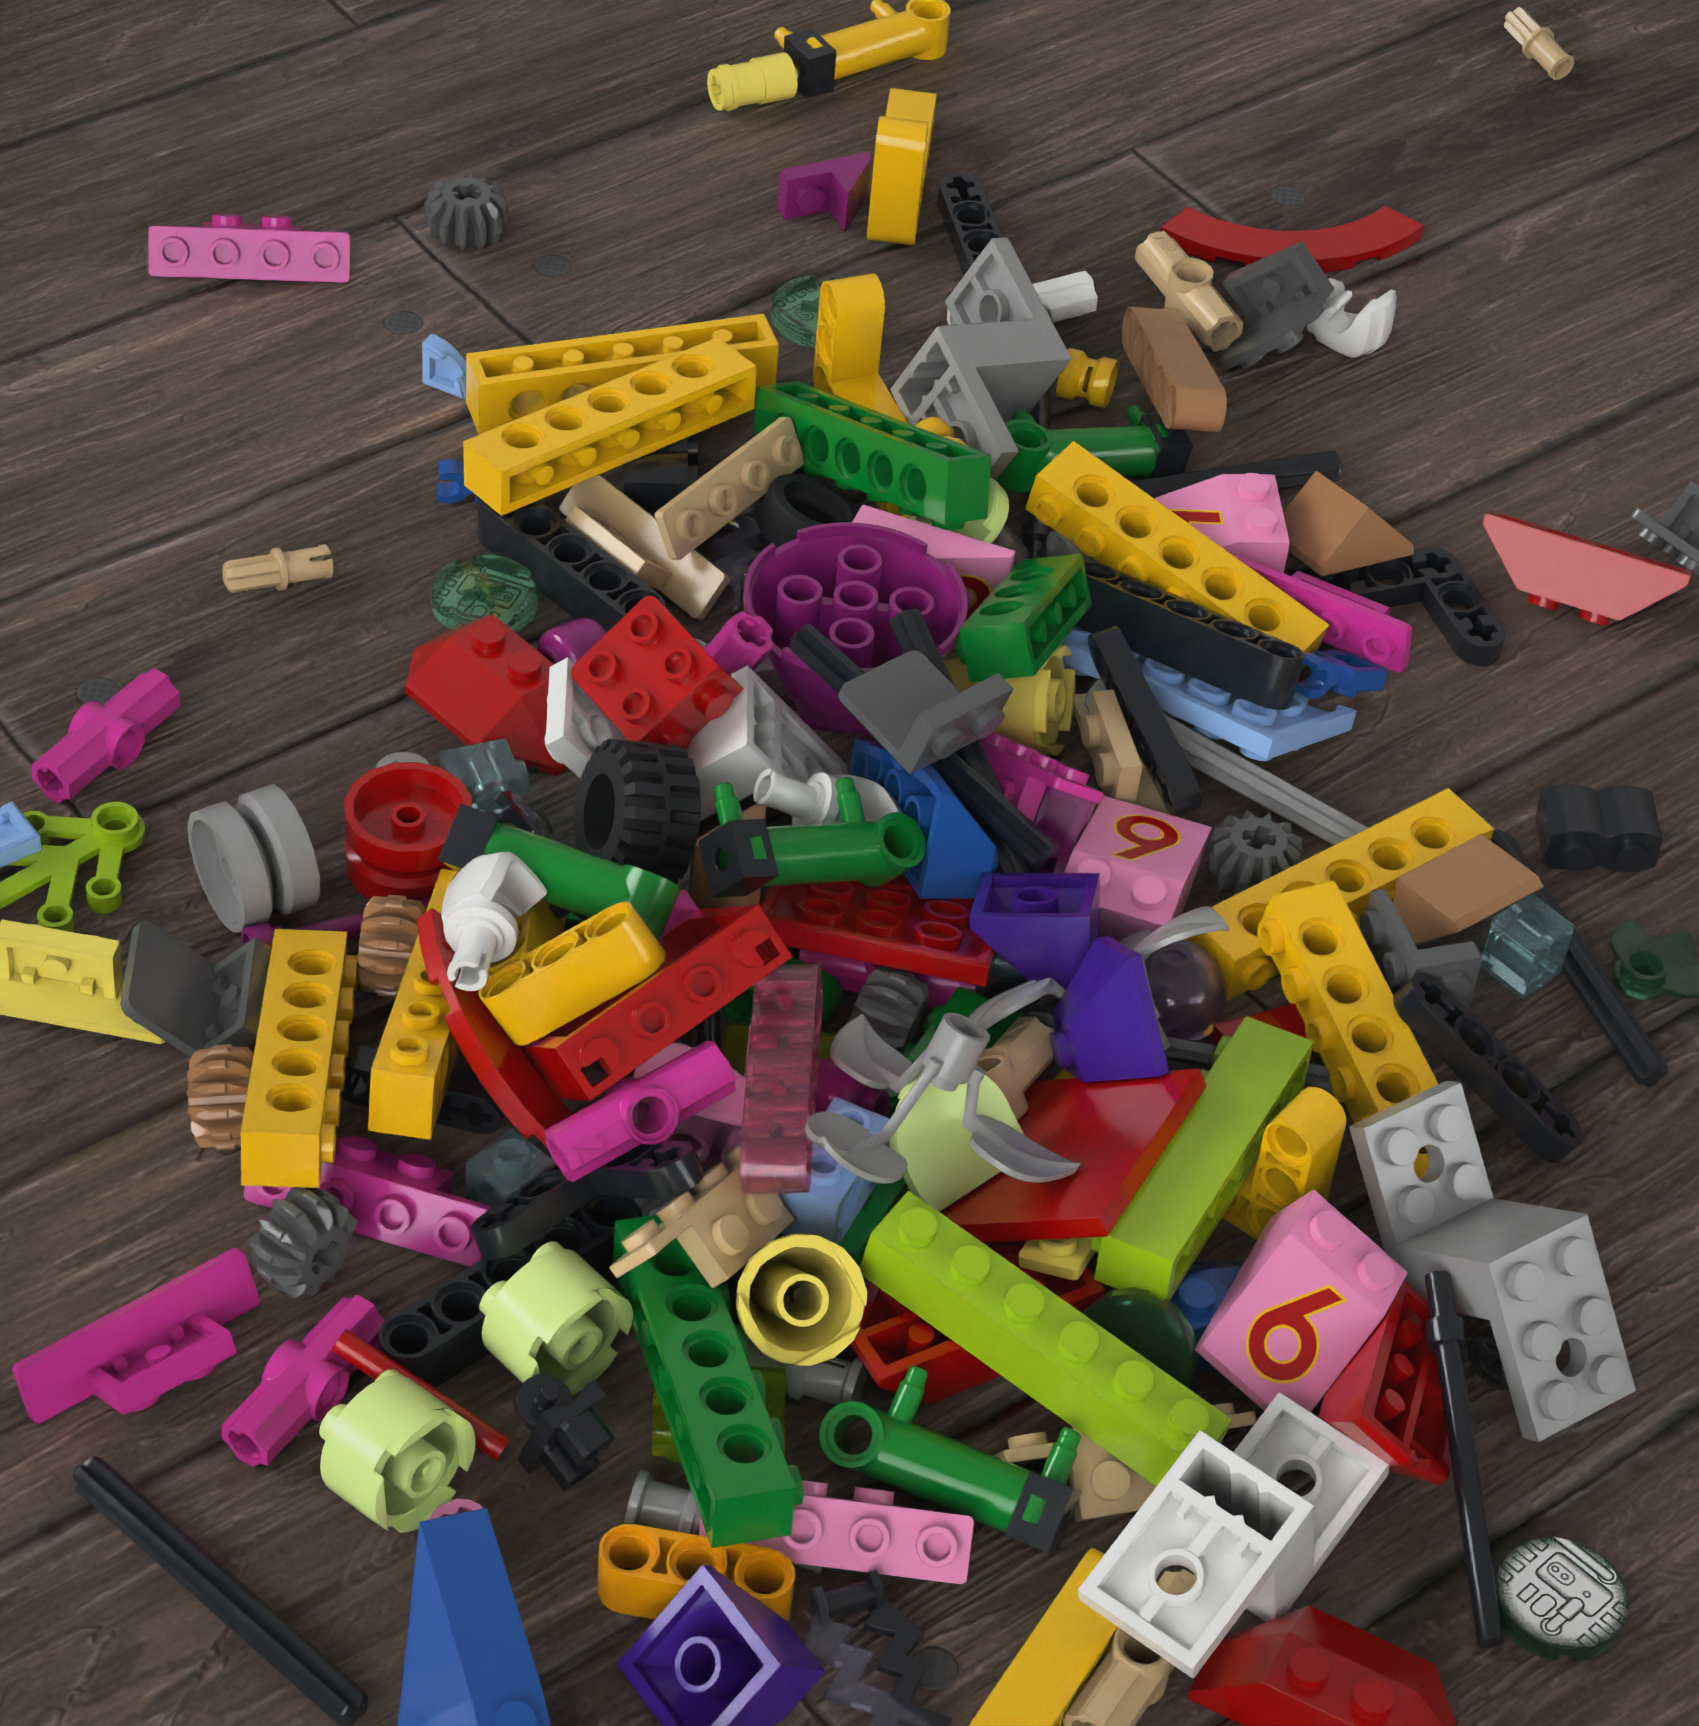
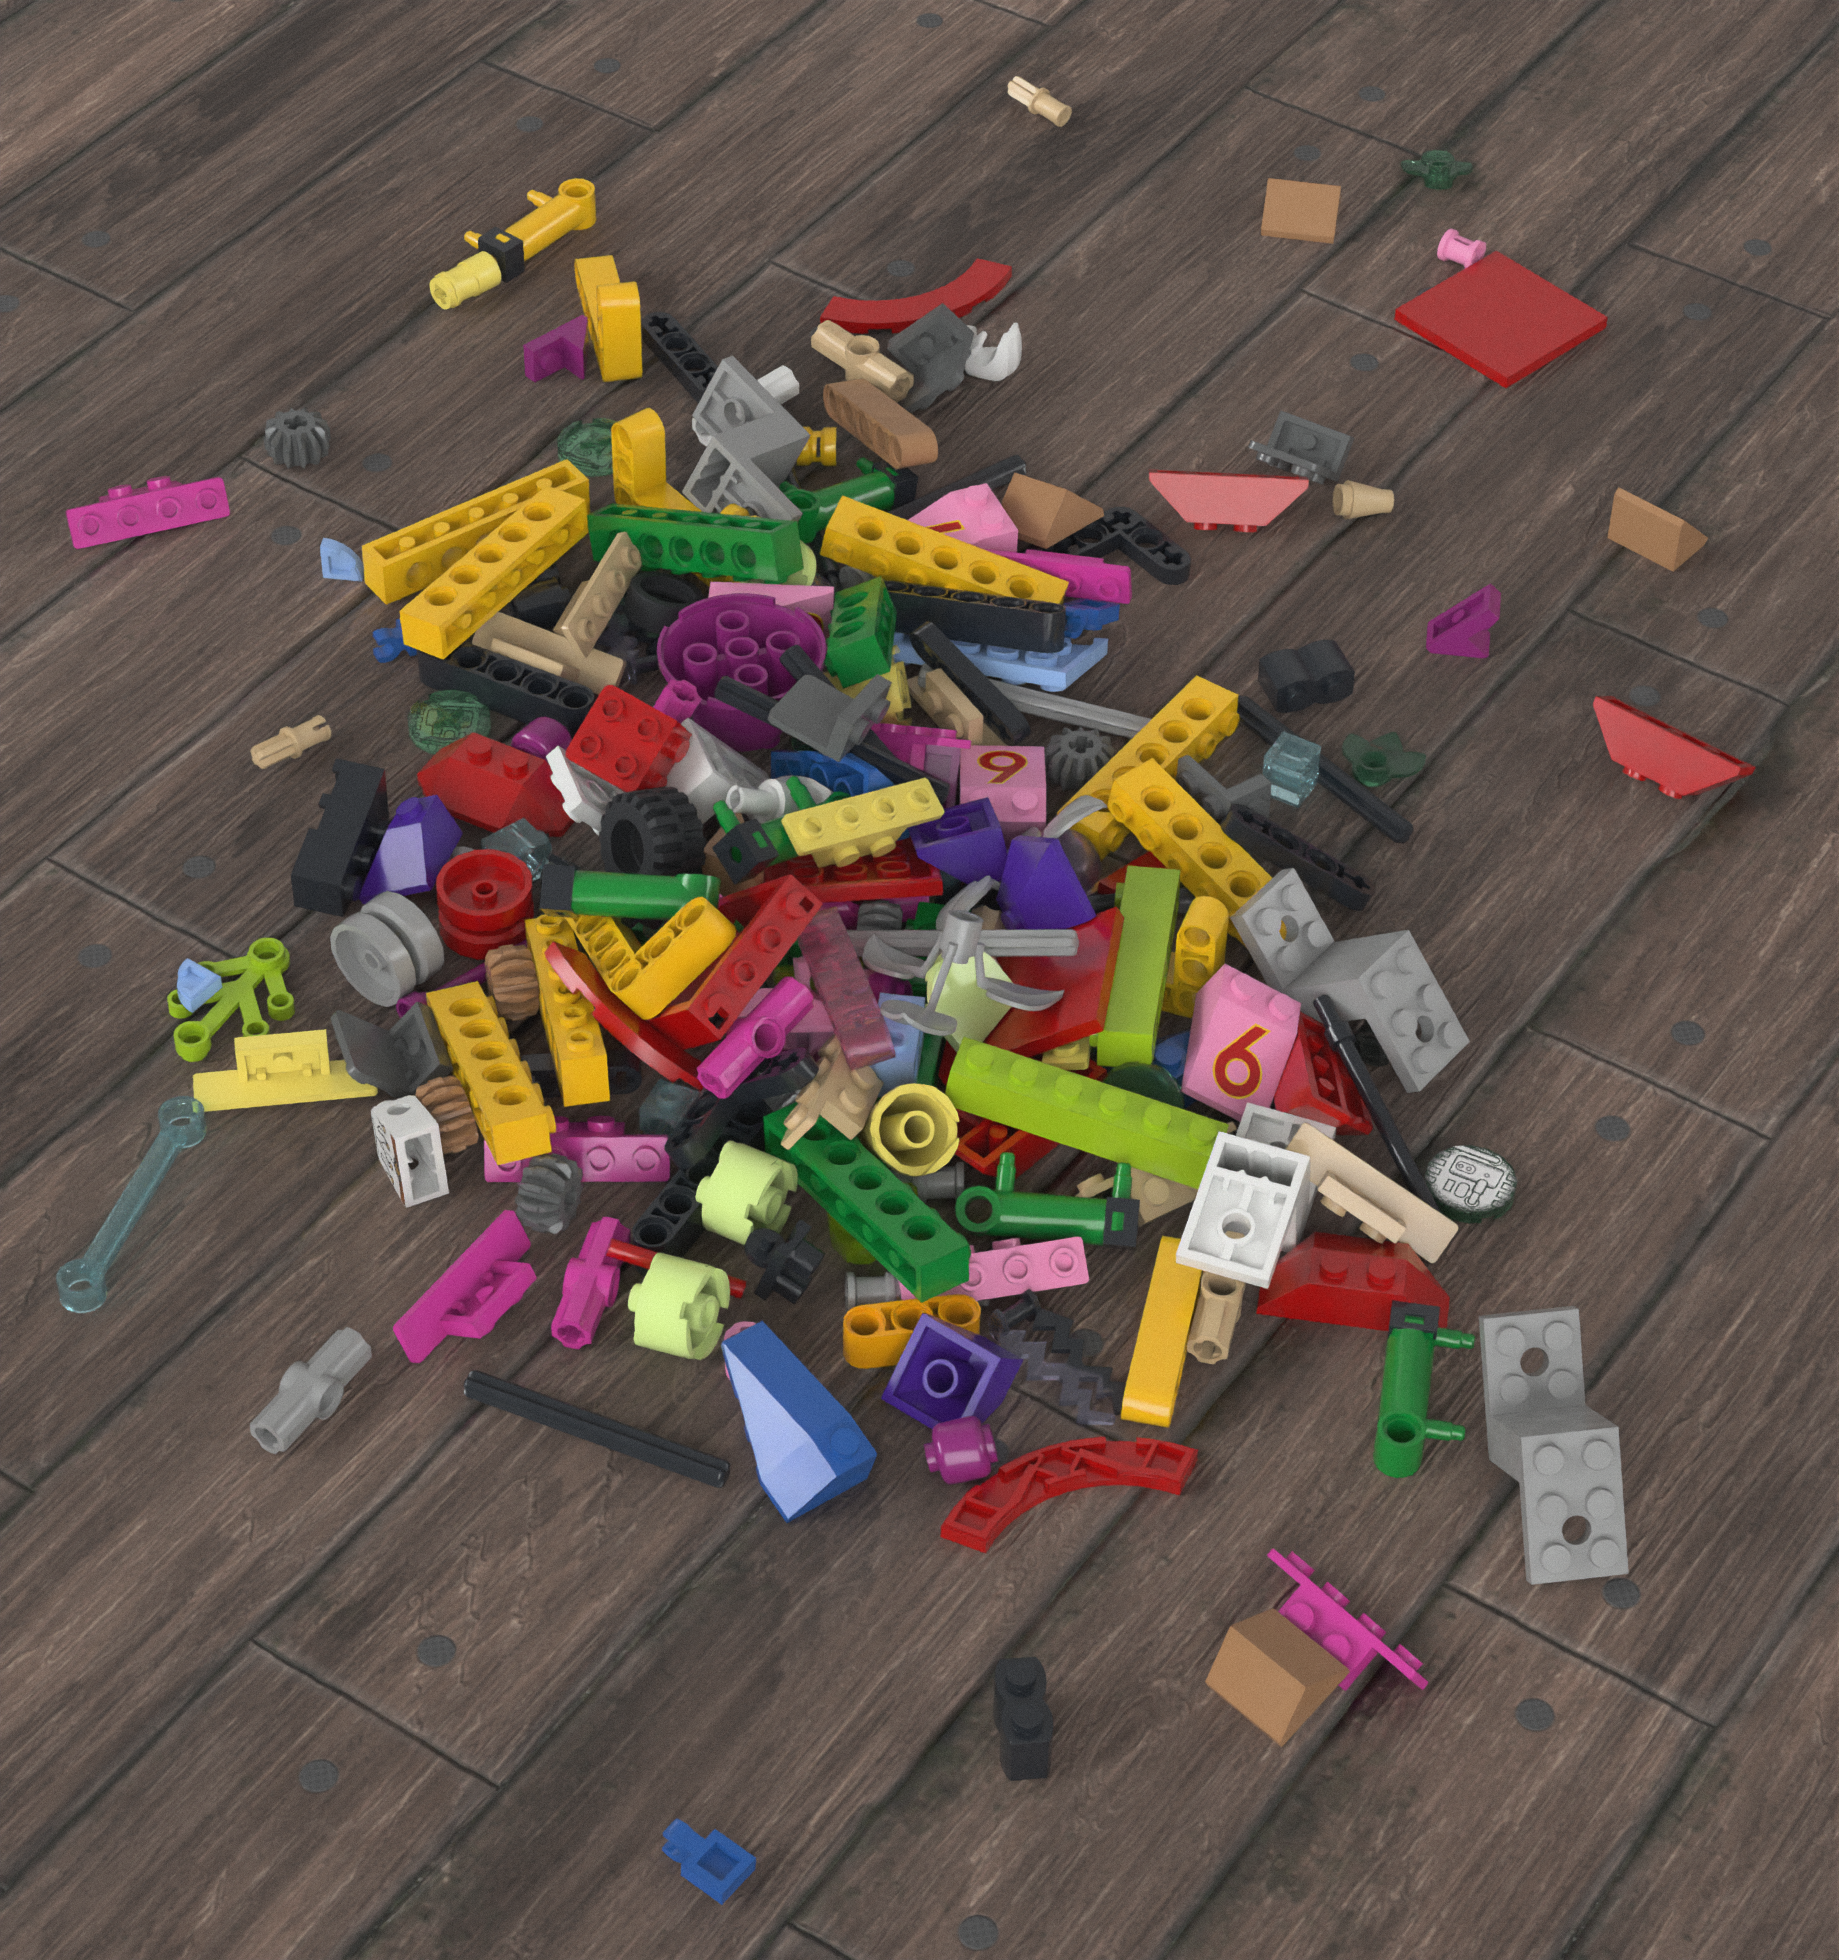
camera: 15 degrees left, 0 degrees up
(105, 735) = (227, 895): dark pink piece -> none
(153, 1107) = (406, 1131): none -> white torso
(276, 708) = (346, 842): none -> black wedge
(347, 737) = (412, 849): none -> dark purple slope
(482, 913) = (591, 934): white piece -> none
(911, 862) = (861, 823): none -> light yellow bracket
(1004, 1067) = (997, 942): none -> light grey axle
(1398, 1579) = (1372, 1196): none -> tan bracket
(1461, 889) = (1236, 740): medium nougat slope -> none

